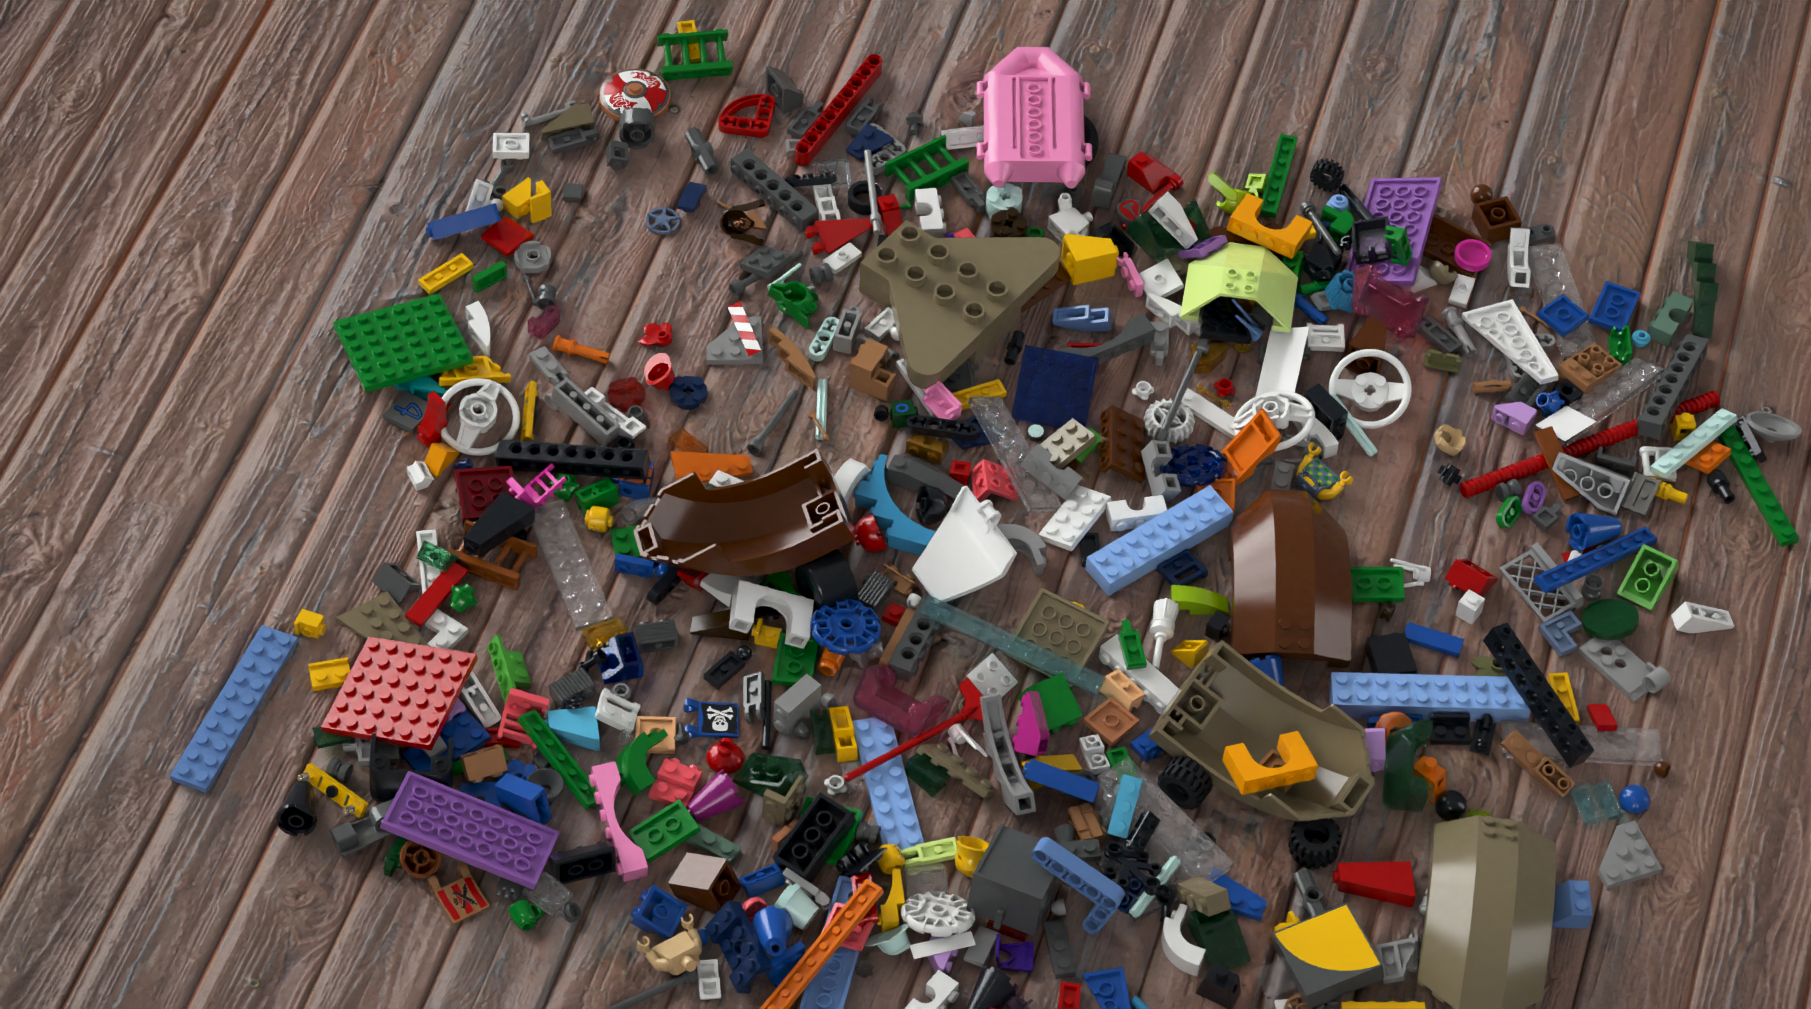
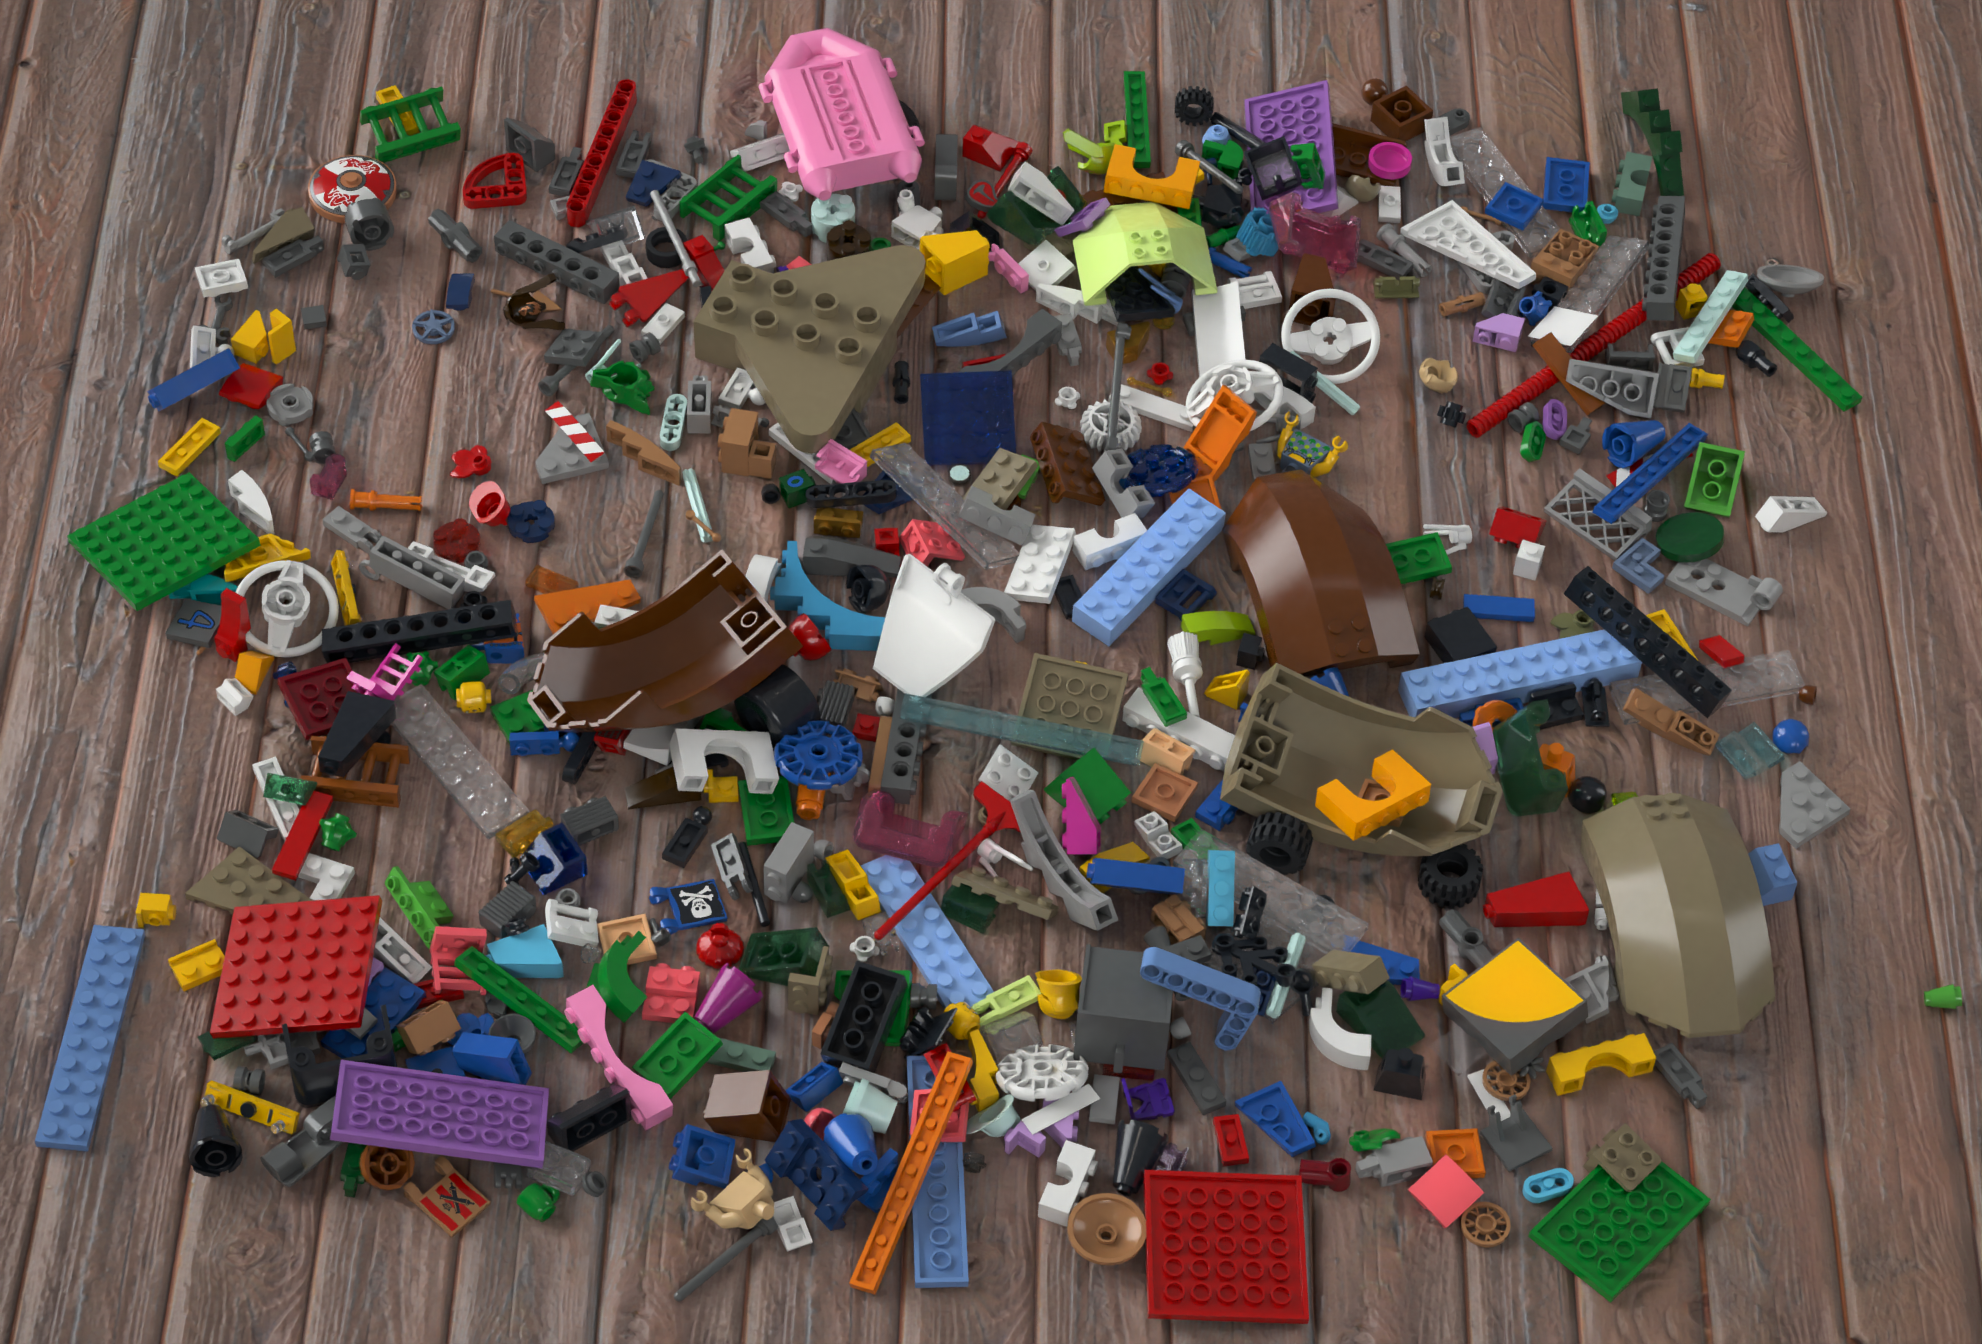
camera: 15 degrees left, 0 degrees up
(905, 958) = (1023, 1137): none -> lavender bracket
(977, 174) = (791, 191): none -> white plate
(1258, 924) = (1418, 989): none -> dark purple cone

